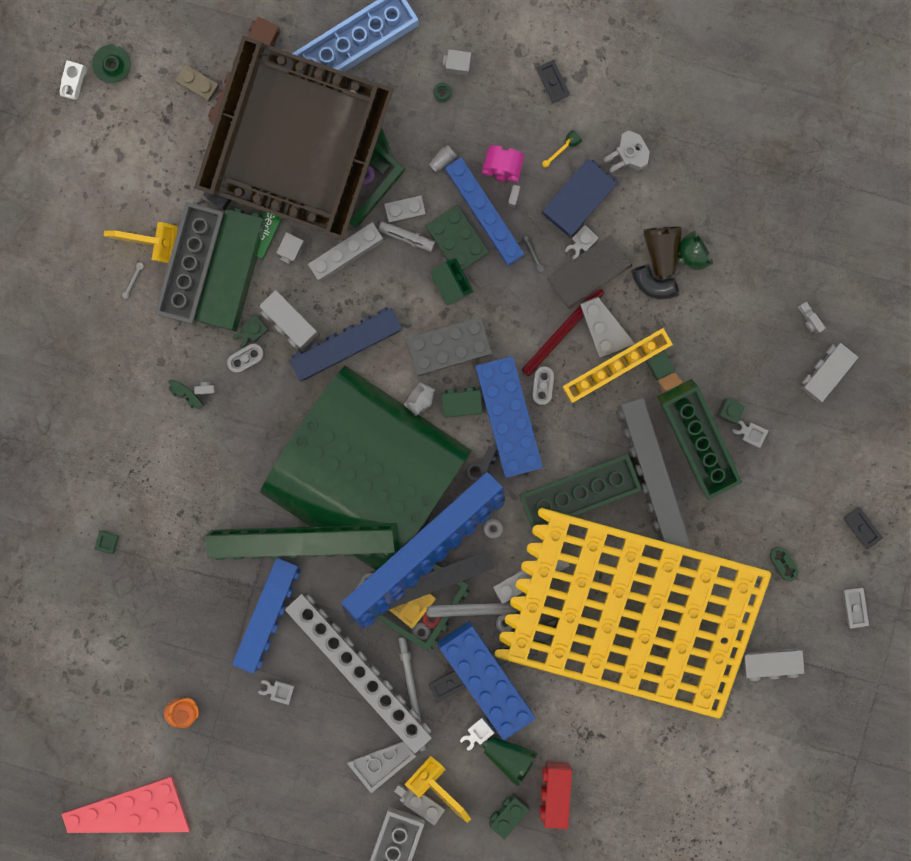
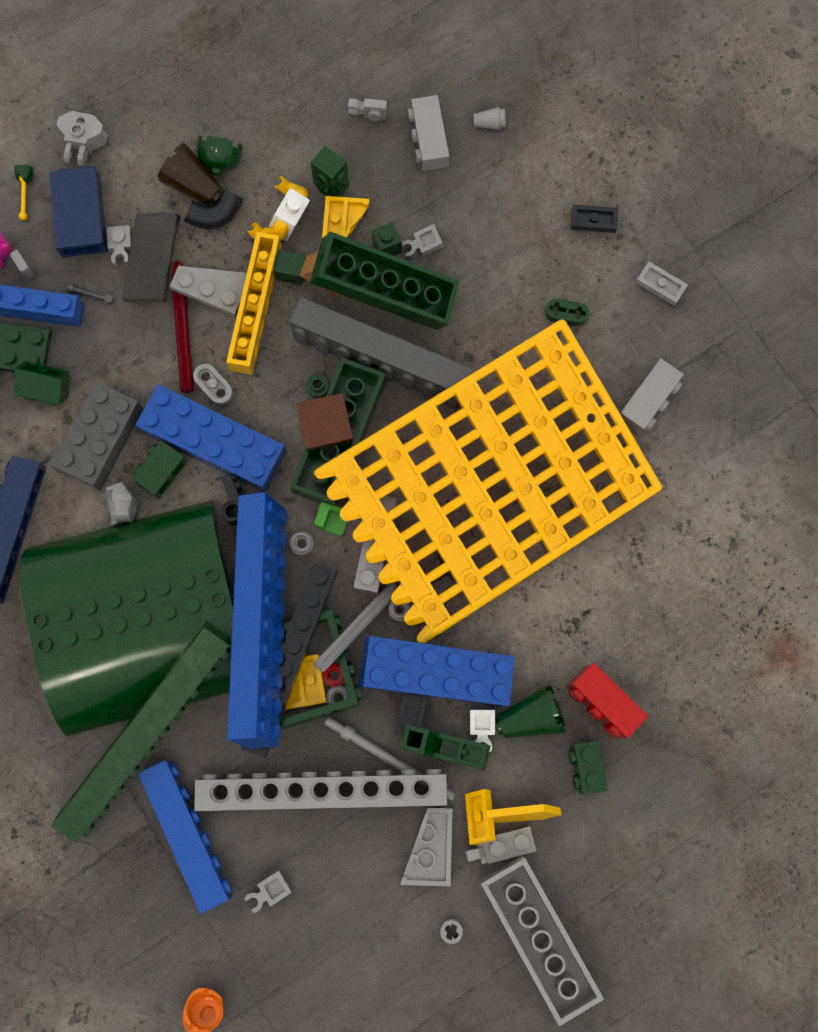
camera: 50 degrees left, 10 degrees down
(351, 818) = (443, 932): none -> light grey bush
(447, 722) = (445, 747): none -> dark green arch
(523, 534) = (329, 519): none -> bright green panel
(577, 481) = (324, 422): none -> reddish brown tile
(603, 455) = (317, 392): none -> dark green plate
(693, 333) = (288, 212): none -> torso
(722, 367) = (343, 214): none -> yellow wing
(743, 337) = (330, 173): none -> dark green brick
(874, 403) = (490, 119): none -> light grey cone

